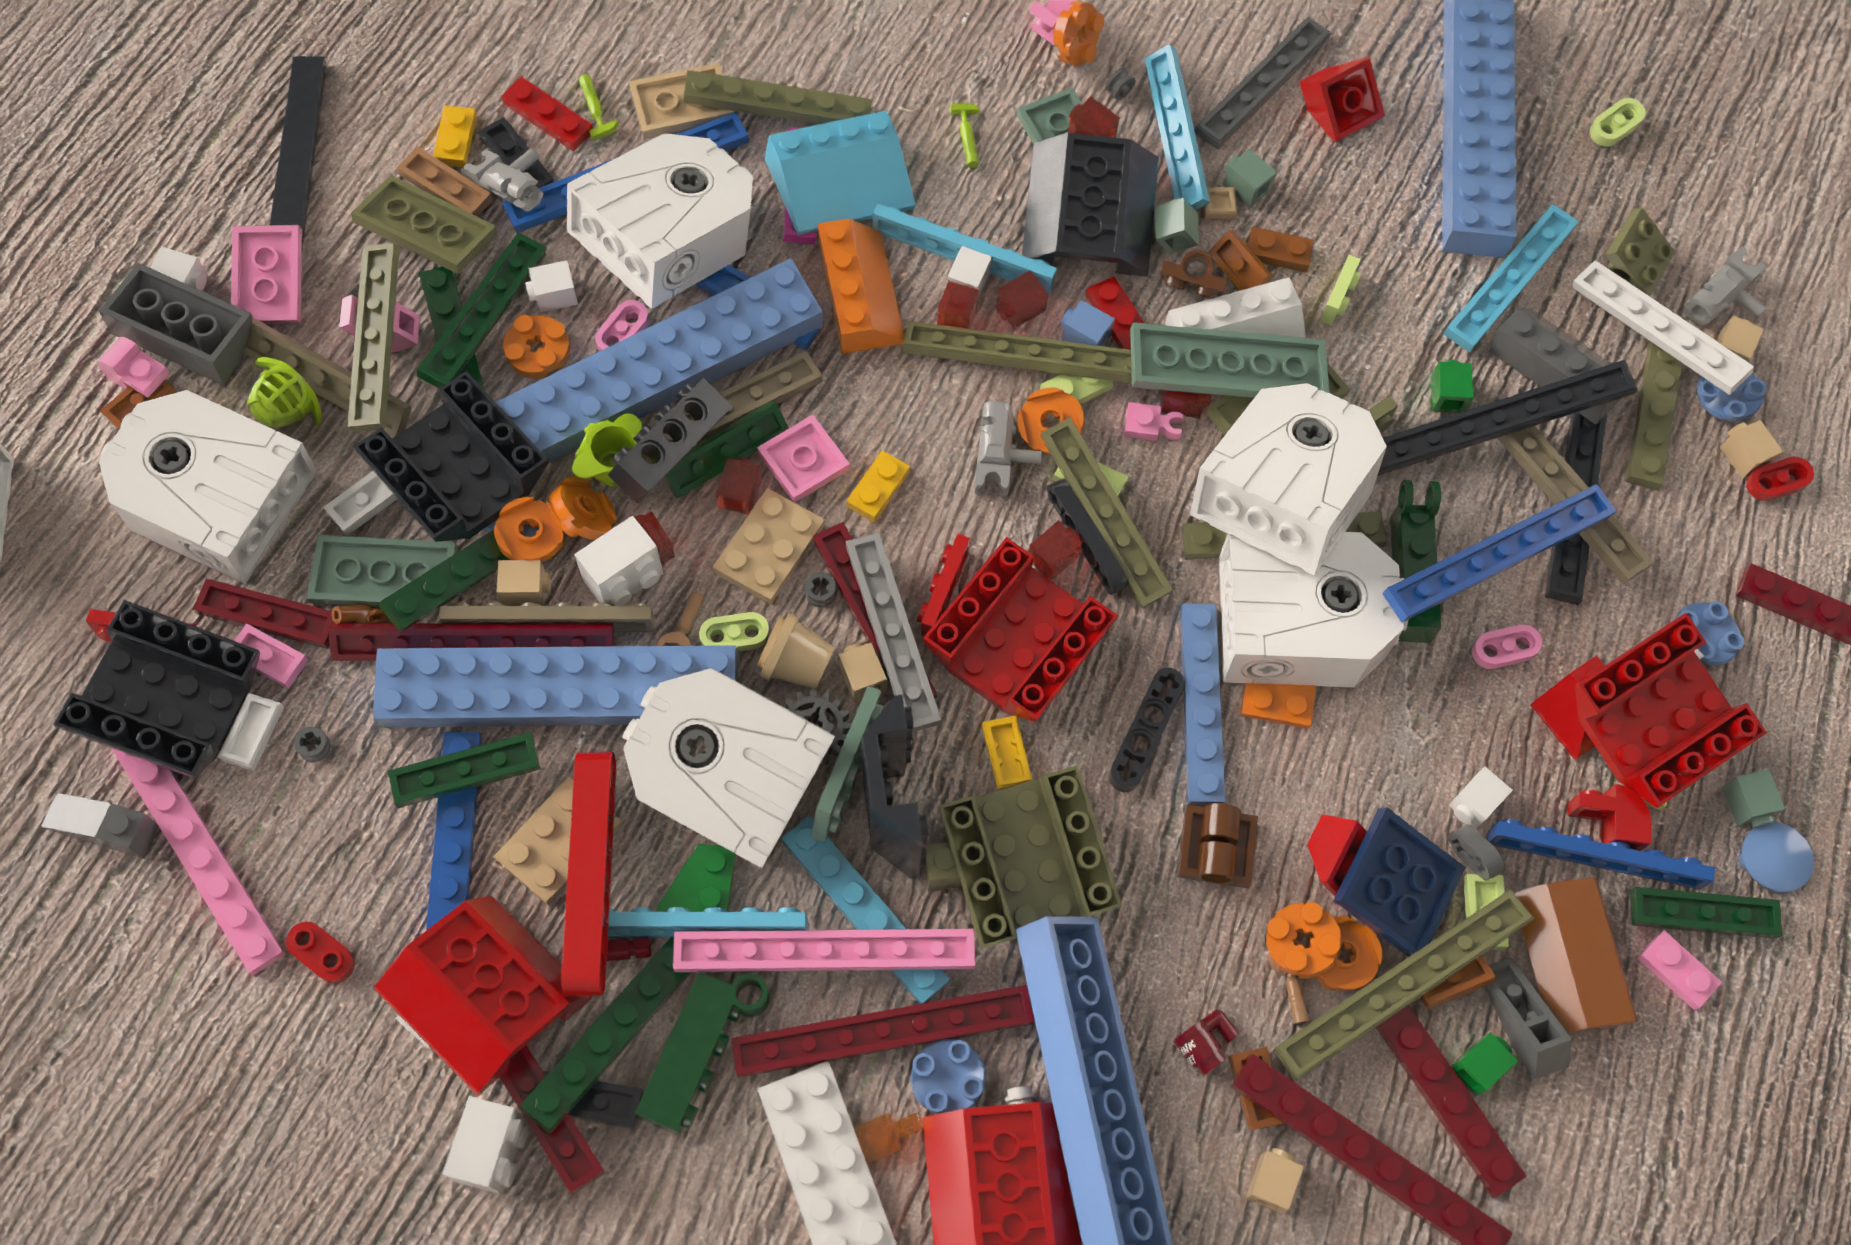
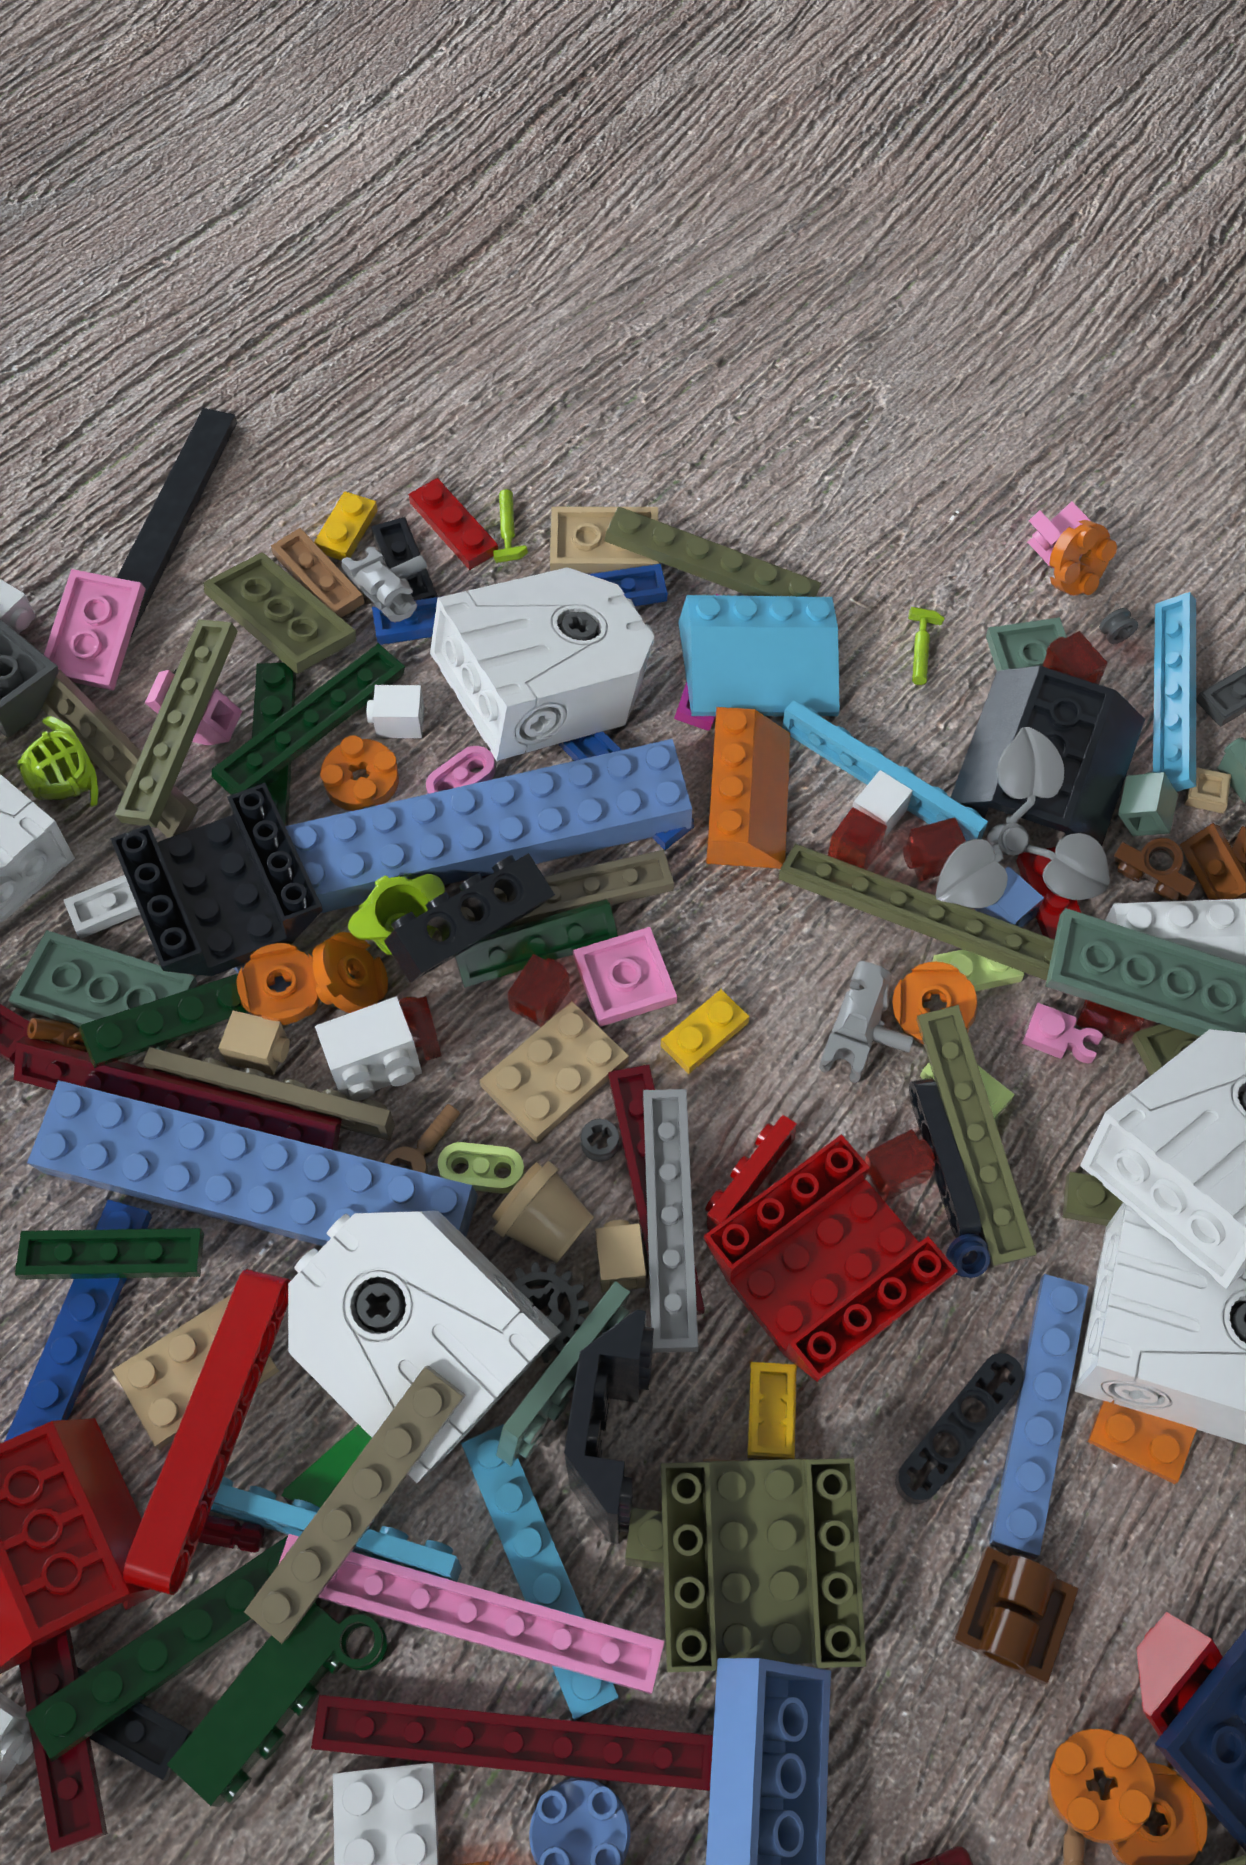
camera: 20 degrees right, 5 degrees down
(720, 893) = (354, 1504): none -> dark tan plate
(1130, 605) = (976, 1262): none -> dark blue plate
(1135, 288) = (1076, 869): none -> light grey plant

